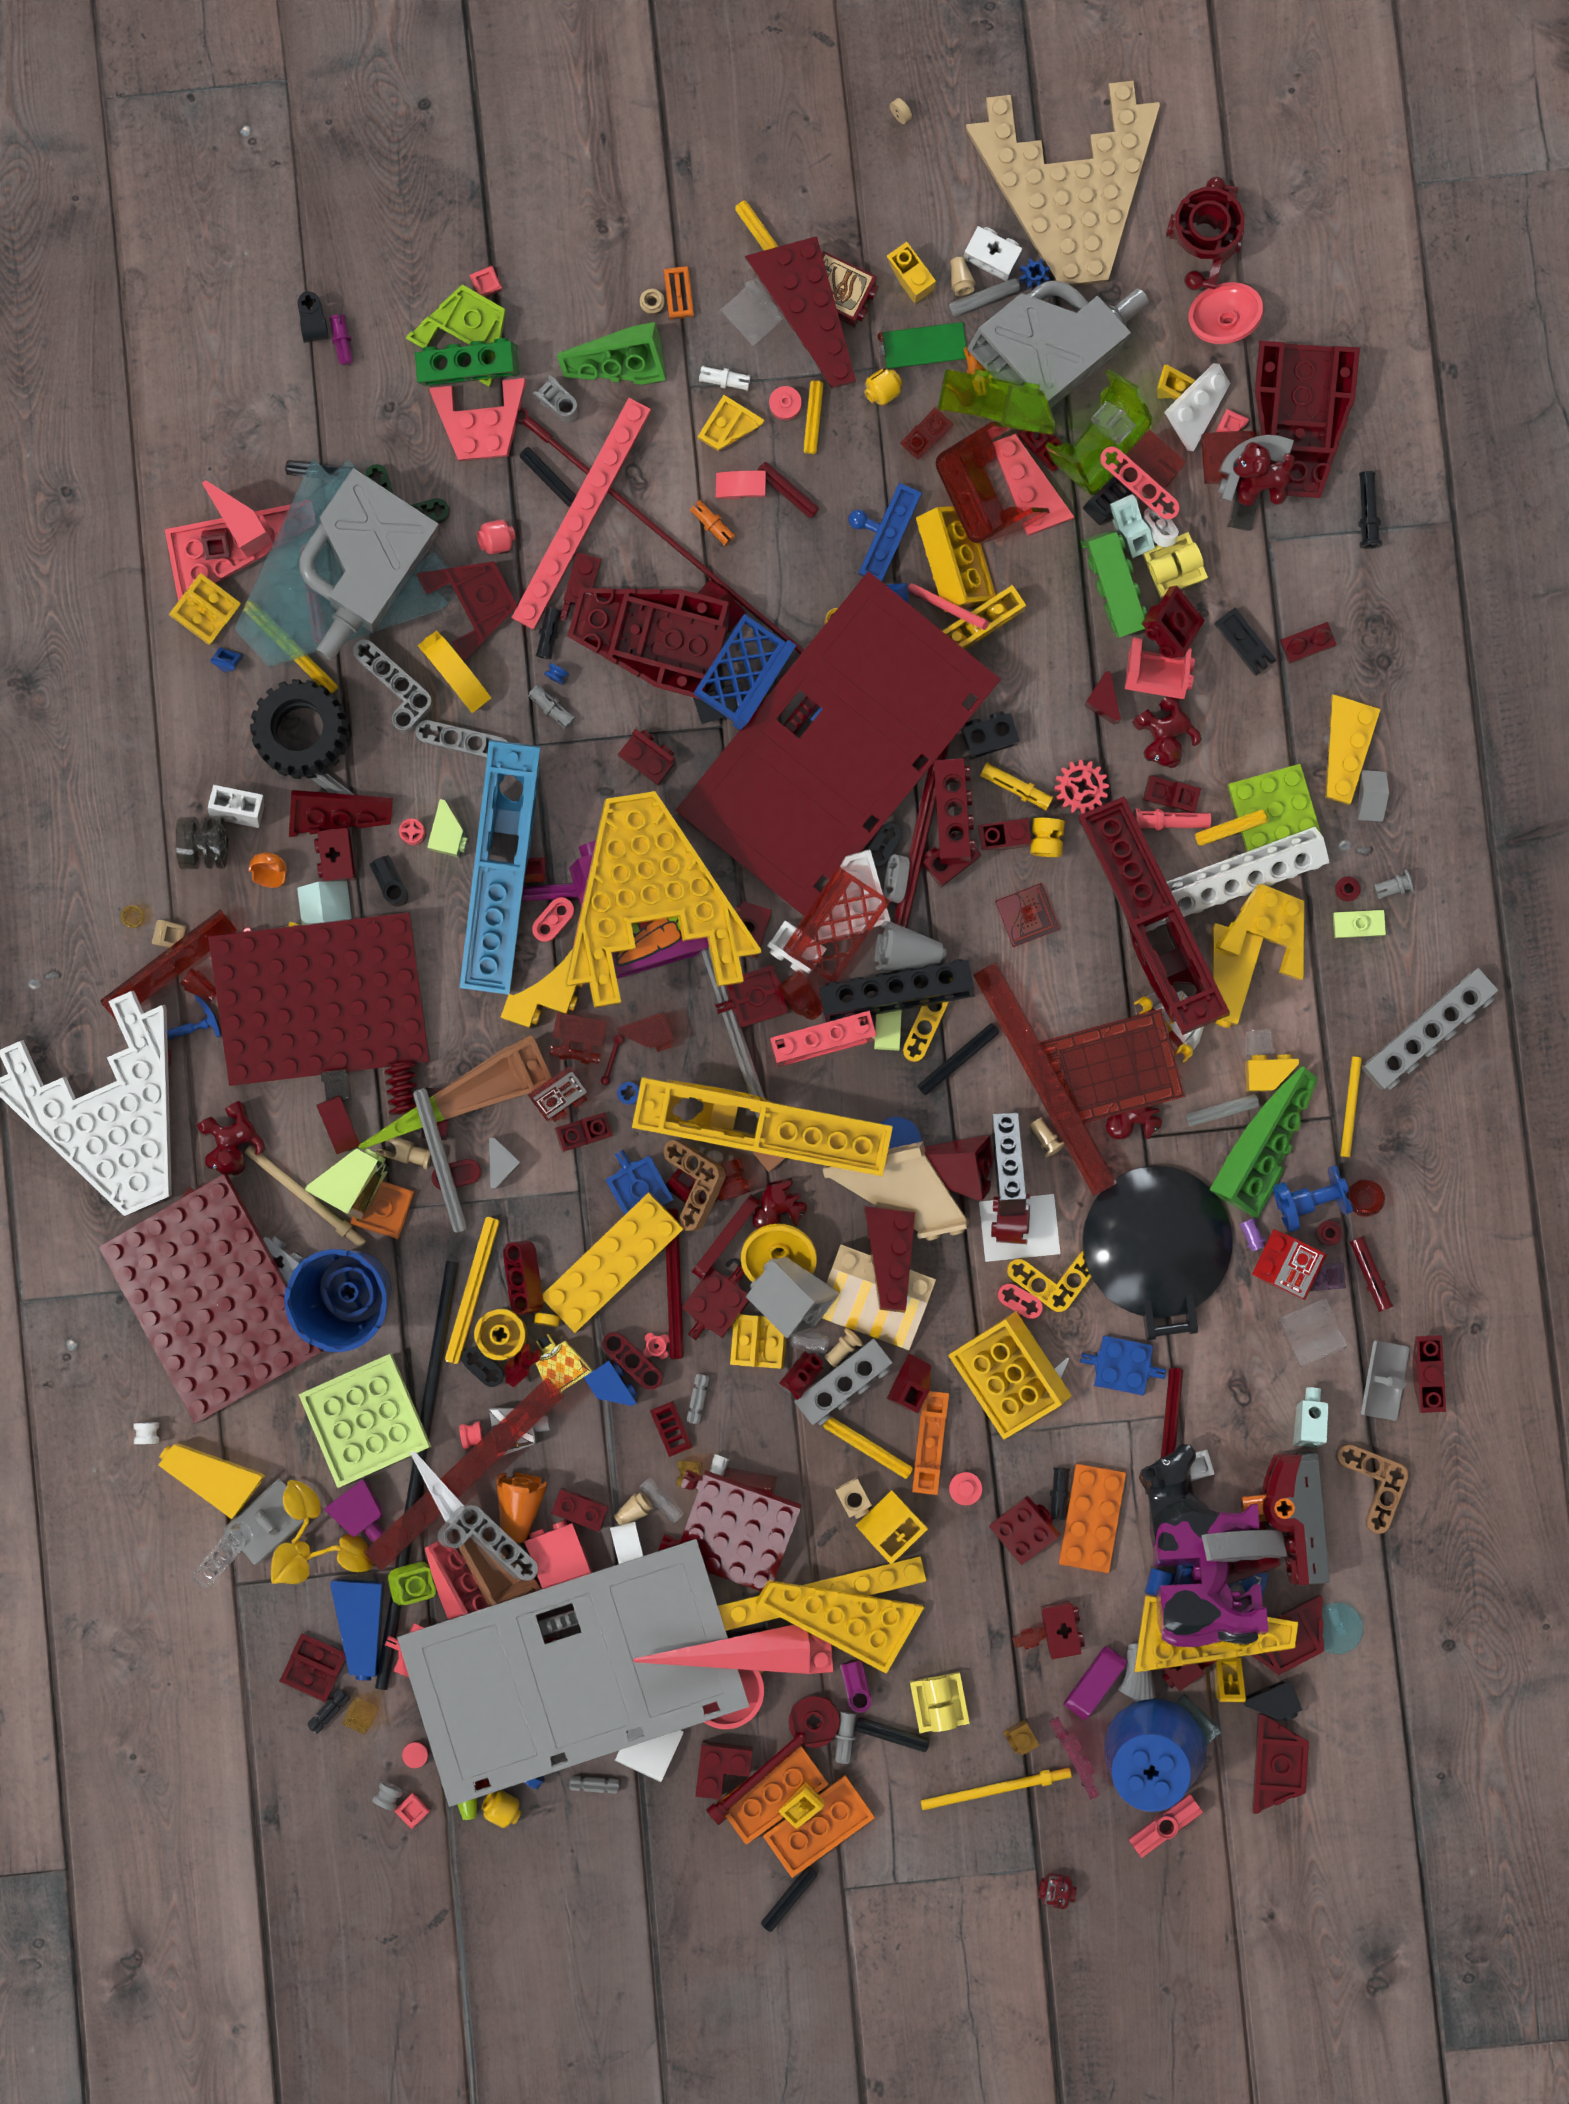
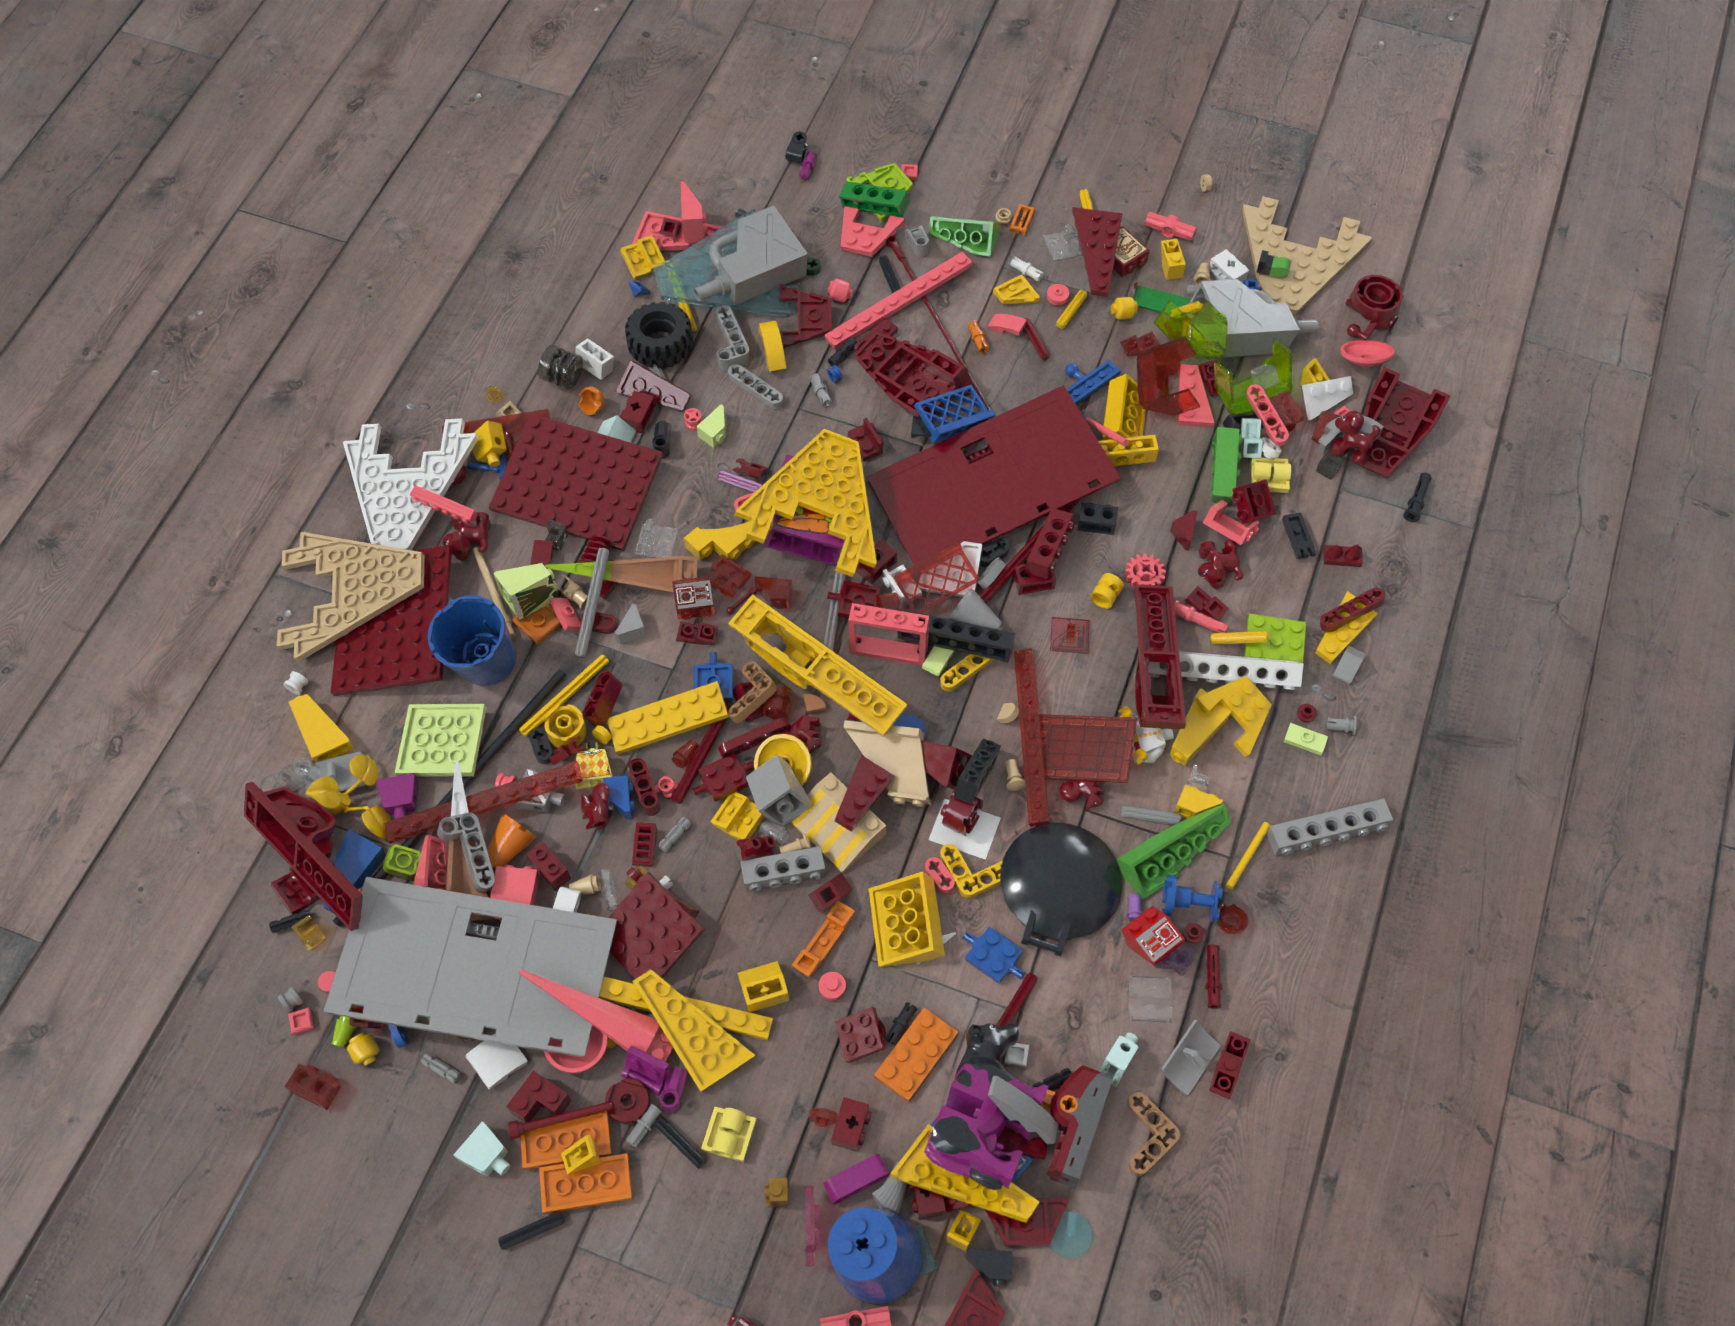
camera: 25 degrees right, 25 degrees down
(154, 1272) = (364, 585): none -> tan wing
(181, 1001) = (489, 443): none -> yellow torso
(182, 1122) = (443, 504): none -> coral piece
(294, 1624) = (301, 835): none -> dark red piece
(413, 1185) = (565, 614): none -> coral plate
(464, 1030) = (656, 540): none -> clear hinge
(474, 1879) = (311, 1089): none -> clear red brick
(499, 884) = (727, 457): dark azure piece -> none
(593, 1414) = (596, 806): none -> dark red animal
(656, 1296) = (685, 753): none -> clear red cone
(695, 1848) = (483, 1152): none -> light aqua torso
(817, 1682) = (647, 1065): none -> magenta plate
(845, 1490) = (742, 944): tan brick -> none
(868, 1447) = (776, 923): yellow axle -> none
(884, 212) = (1170, 226): none -> coral piece
(958, 1059) = (976, 700): black axle -> none
(969, 361) = (1192, 307): none -> yellow axle
(1003, 1059) = (1008, 713): none -> tan tile
(1005, 835) = (1078, 577): dark red slope -> none
(1025, 791) = (1104, 559): yellow pin -> none
(1044, 1777) = (779, 1235): yellow bar -> none
(1051, 224) = (1273, 265): none -> leg
(1249, 1477) = (1055, 1080): none -> black axle
(1347, 722) = (1350, 607): none -> dark red beam

